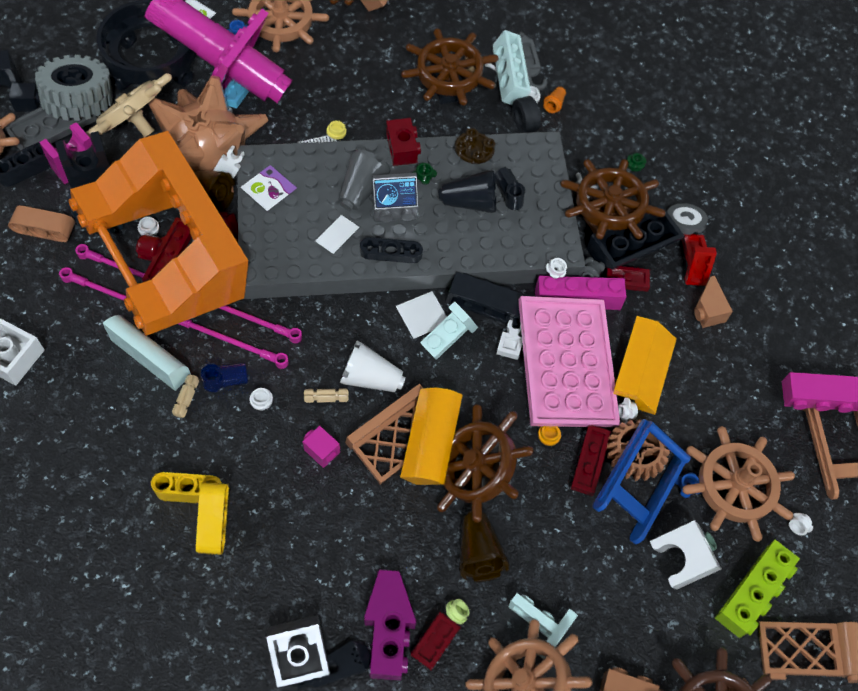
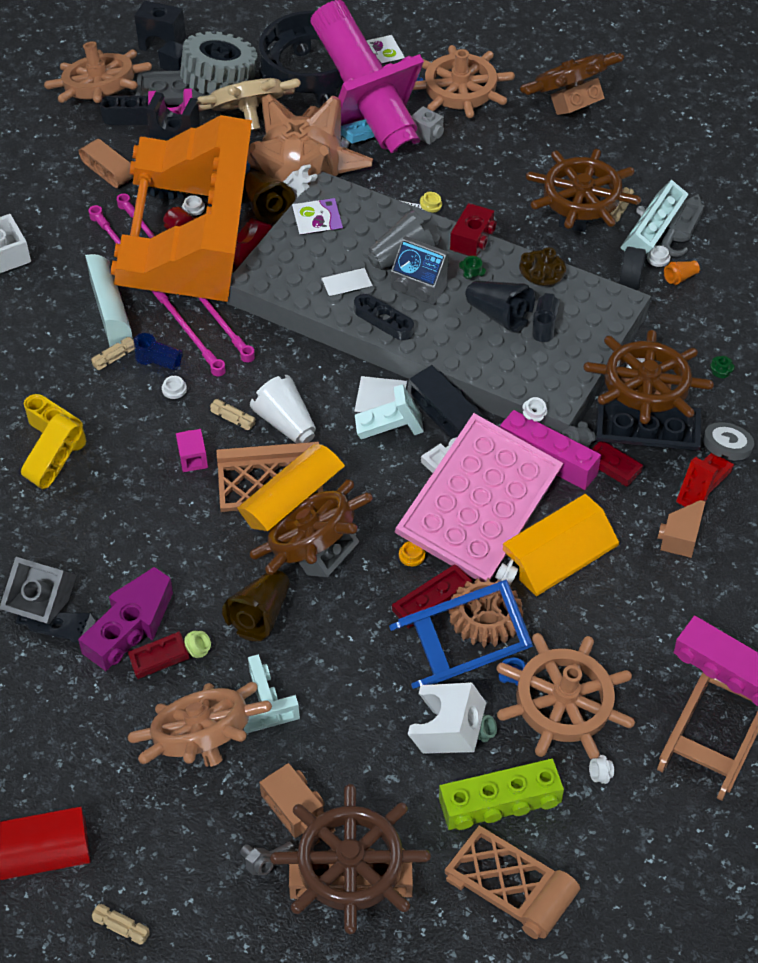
camera: 40 degrees right, 10 degrees down
(286, 61) = (428, 125): none -> light grey brick

